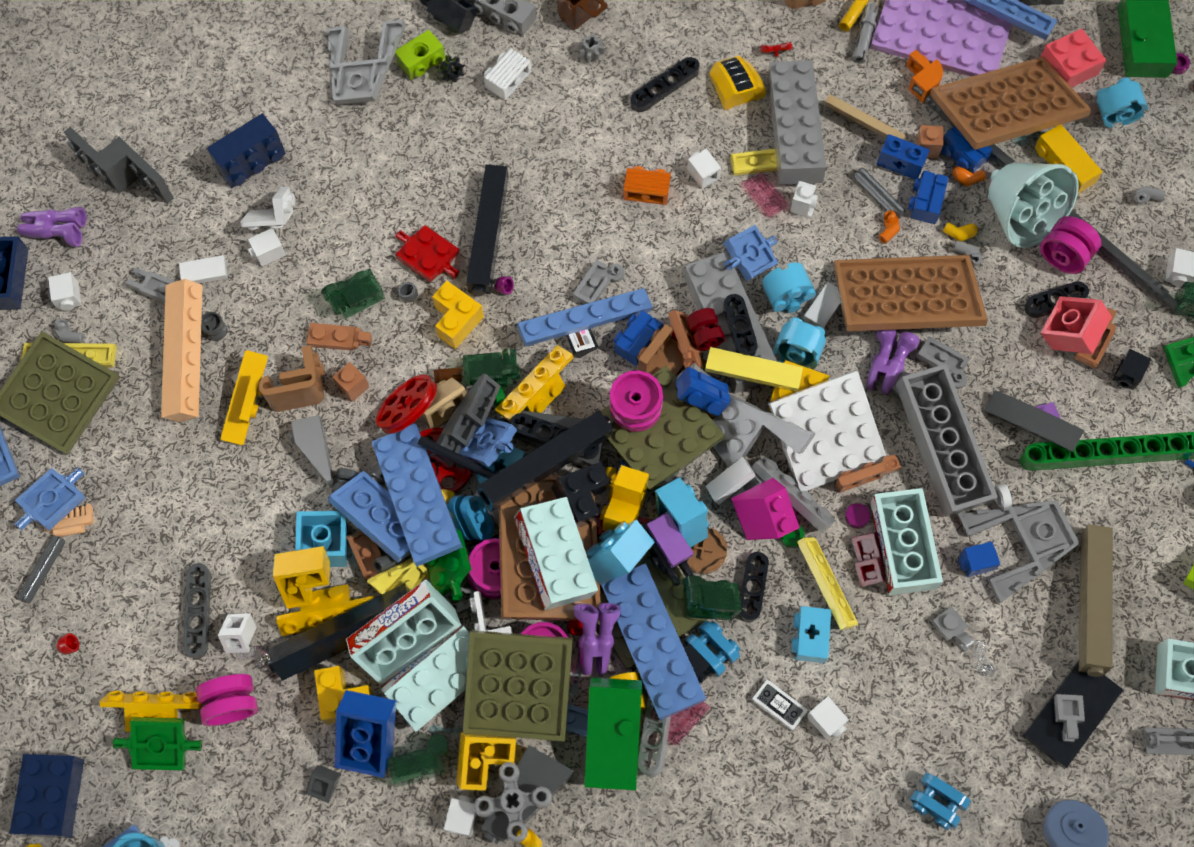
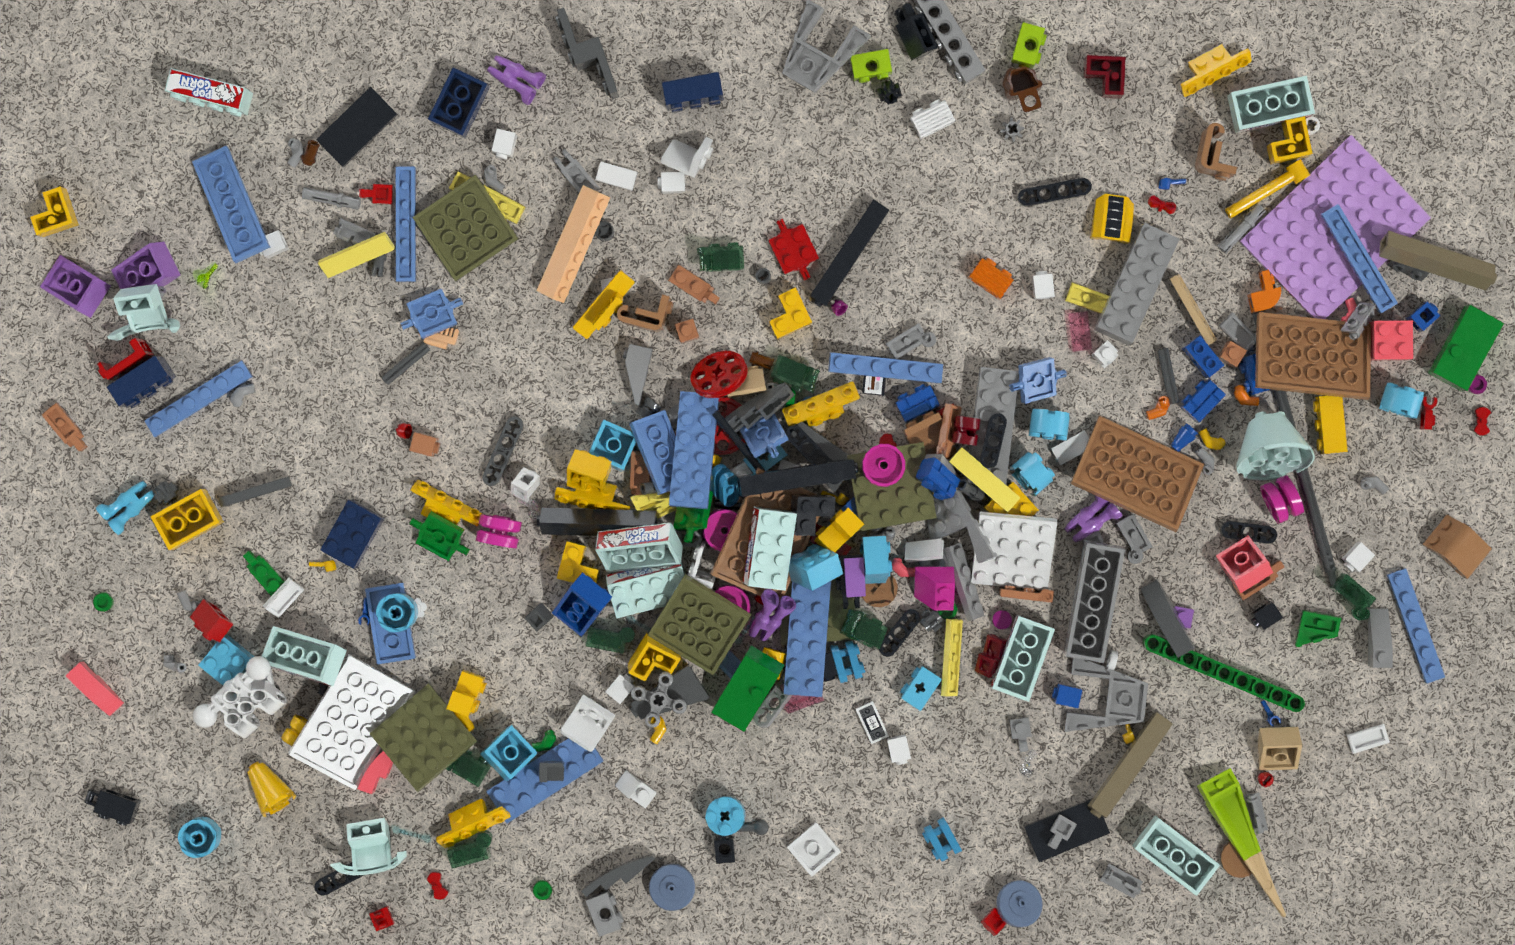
camera: 25 degrees right, 20 degrees up
(98, 647) = (424, 444): none -> nougat brick
(720, 517) = (900, 569): none -> coral arm
(758, 397) = (973, 492): none -> dark grey pin
(768, 28) = (1165, 183): none -> blue hand
(781, 553) = (931, 620): none -> dark grey gear
(913, 119) = (1238, 332): none -> light grey tile
(932, 239) = (1184, 437): none -> blue cone
(1015, 53) = (1351, 305): none -> coral arm
(1030, 53) = (1358, 319): none -> light grey hinge
(1073, 570) = (1129, 736): none -> yellow hand
(1090, 22) = (1431, 315): none -> blue brick
(1157, 111) = (1427, 418): none -> red plate

